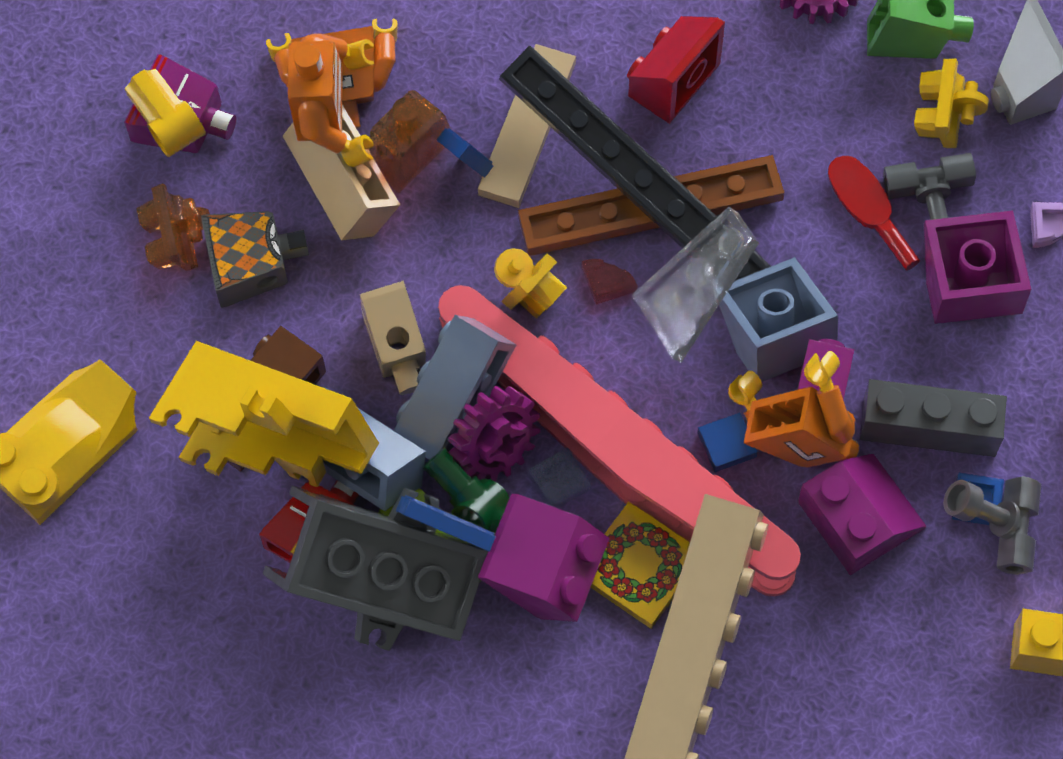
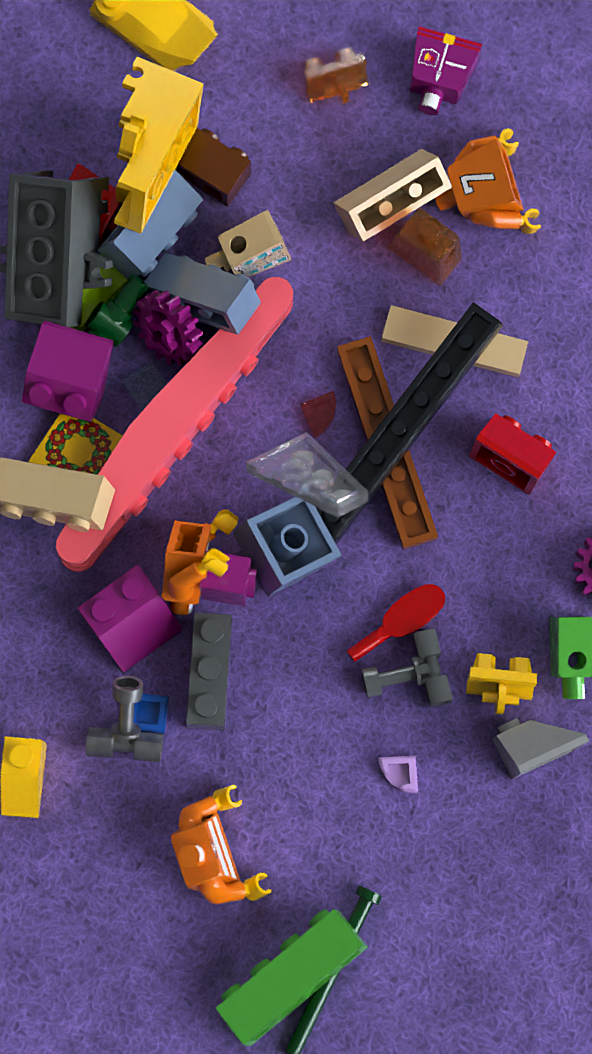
camera: 80 degrees right, 10 degrees up
(168, 119) = (415, 56): yellow piece -> none
(248, 253) = (316, 134): torso -> none
(316, 93) = (441, 156): orange torso -> none
(446, 522) = (80, 289): blue tile -> none
(465, 152) = (417, 290): blue tile -> none
(532, 284) = (303, 344): yellow hips -> none
(725, 442) = (184, 508): blue tile -> none
(975, 267) = (344, 701): magenta slope -> none

